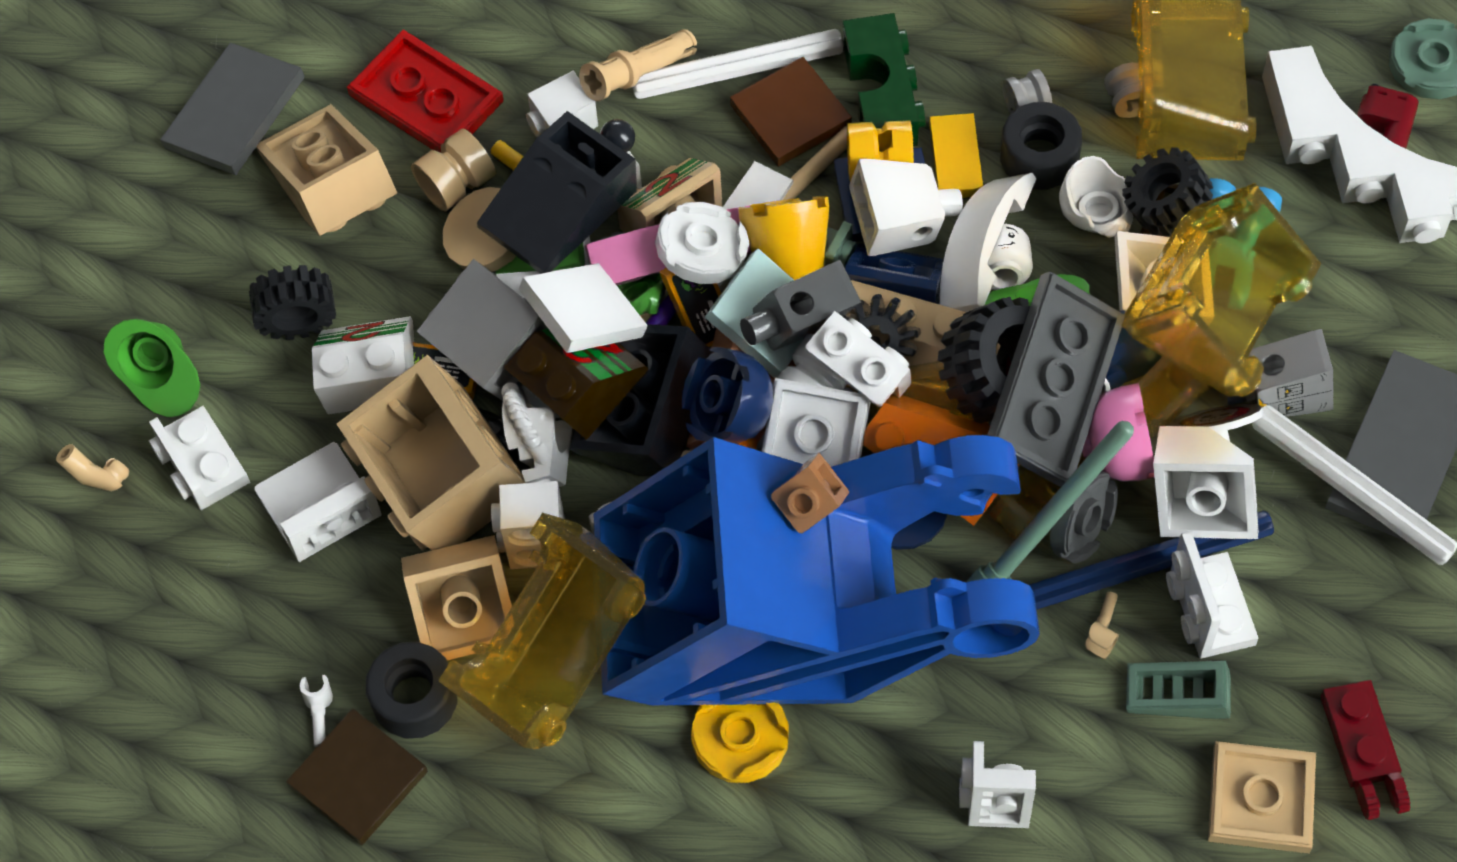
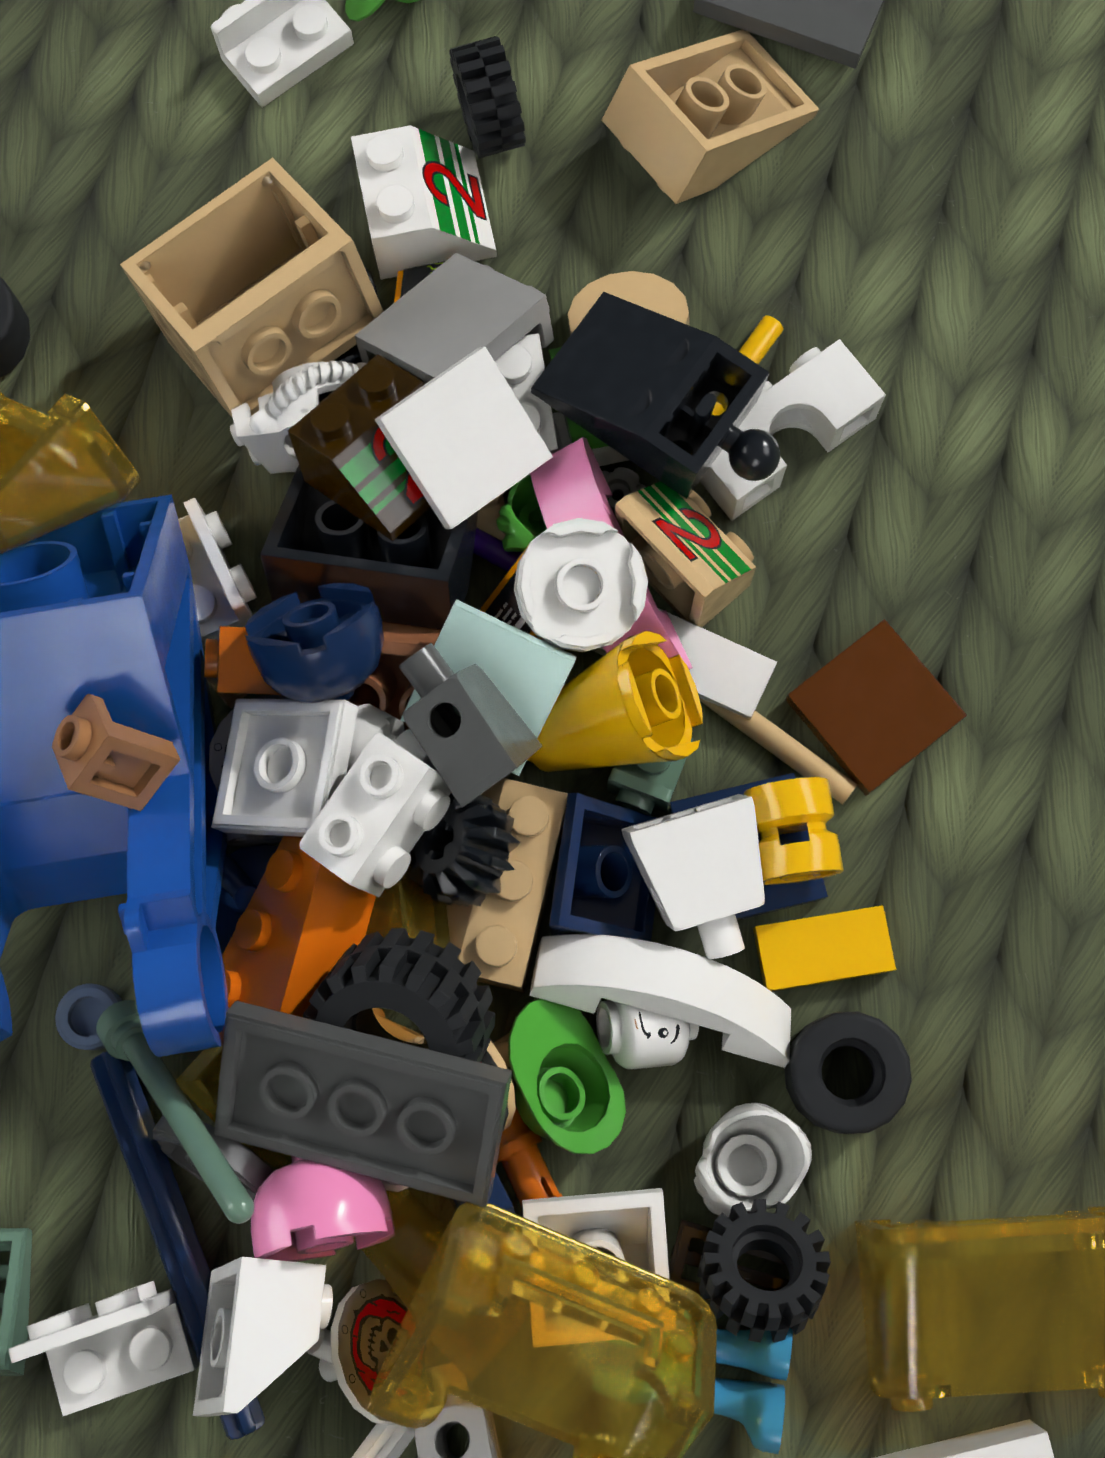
camera: 85 degrees right, 15 degrees up
(317, 501) = (209, 161): white bracket -> none
(424, 91) = (849, 222): red tile -> none
(457, 595) = (97, 348): tan slope -> none
(458, 166) = (709, 260): tan wheel -> none
(518, 513) = (172, 427): white brick -> none
(625, 68) = (895, 462): tan pin -> none
(738, 63) = (948, 628): white axle -> none
(878, 52) = (989, 819): dark green arch -> none
(1026, 90) = (936, 1048): light grey wheel -> none
(1100, 638) = (65, 1186): tan hand -> none
(1124, 87) = (961, 1199): light grey wheel -> none

